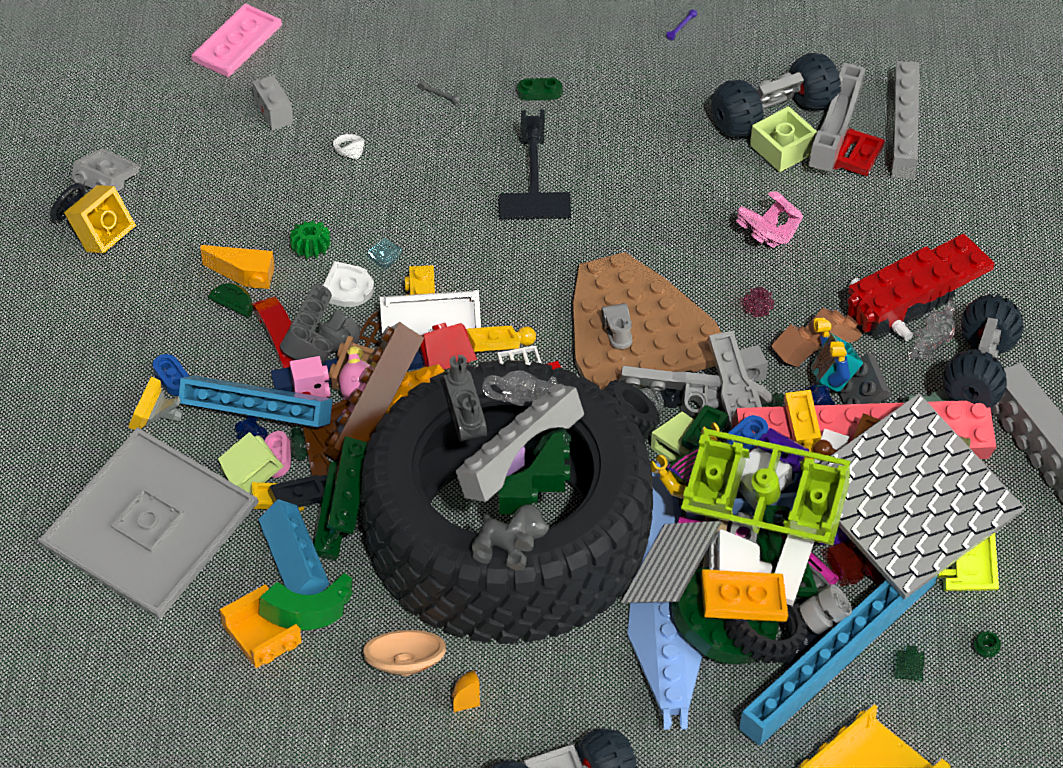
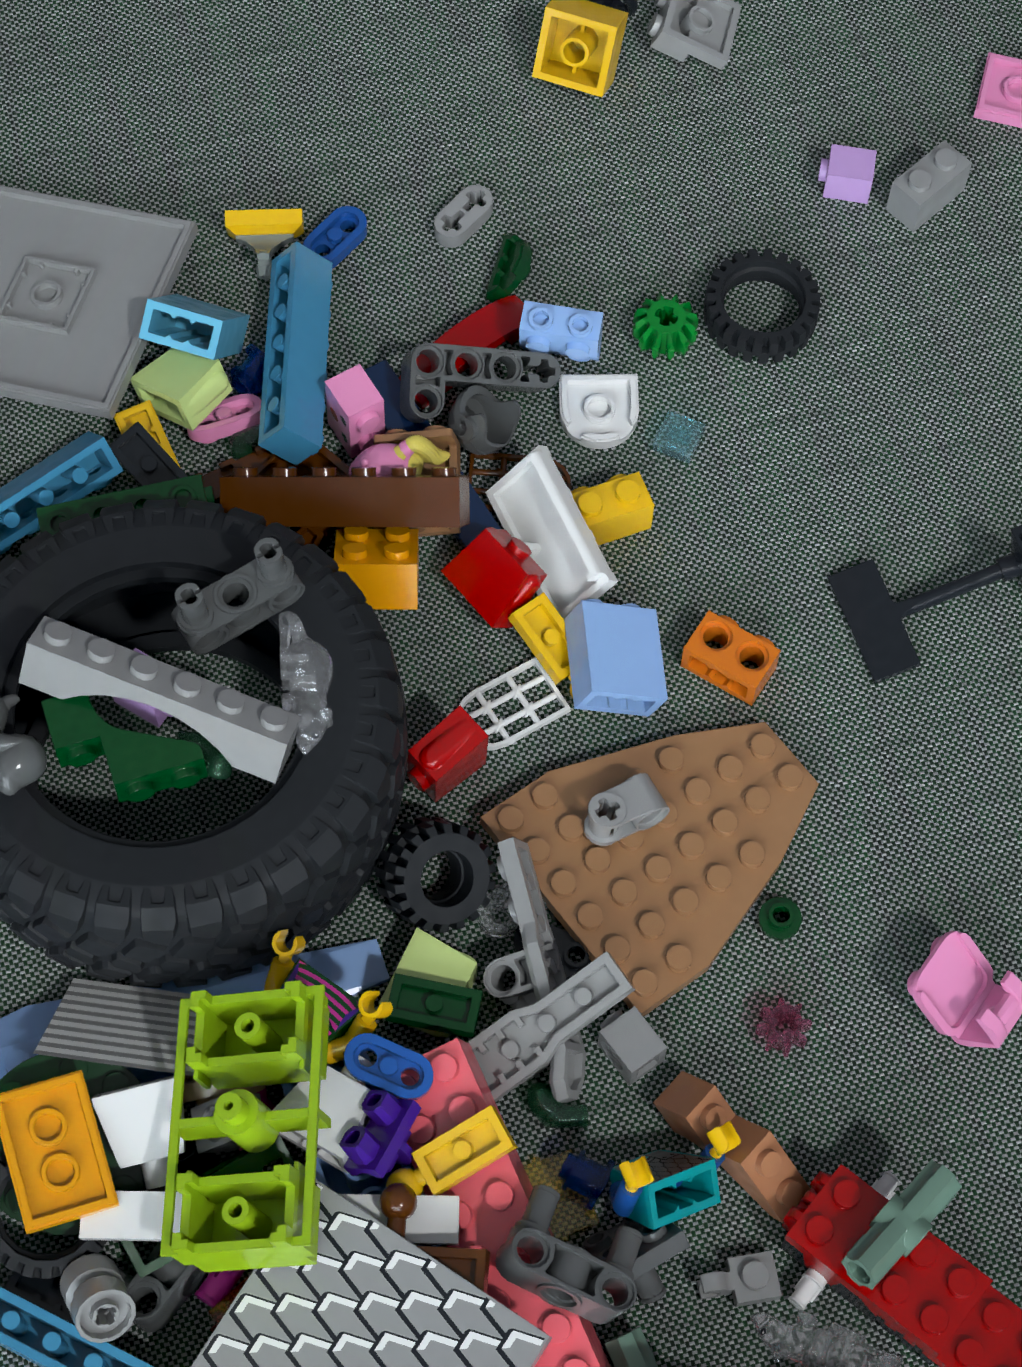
camera: 70 degrees right, 15 degrees up
(188, 310) = (458, 212): none -> light grey beam
(218, 440) = (194, 326): none -> medium azure brick
(241, 265) = (576, 264): light orange slope -> none
(246, 133) = (848, 173): none -> lavender brick
(301, 276) = (561, 331): none -> light blue plate
(314, 176) = (761, 269): none -> black tyre
(352, 150) = (883, 329): white piece -> none
(518, 310) = (615, 658): none -> light blue brick
(535, 266) = (723, 665): none -> orange brick
(696, 290) = (775, 929): none -> dark green plate
(877, 396) = (564, 1272): none -> dark grey piece
(889, 355) = (748, 1279): none -> light grey plate
(892, 262) = (901, 1225): none -> sand green piece

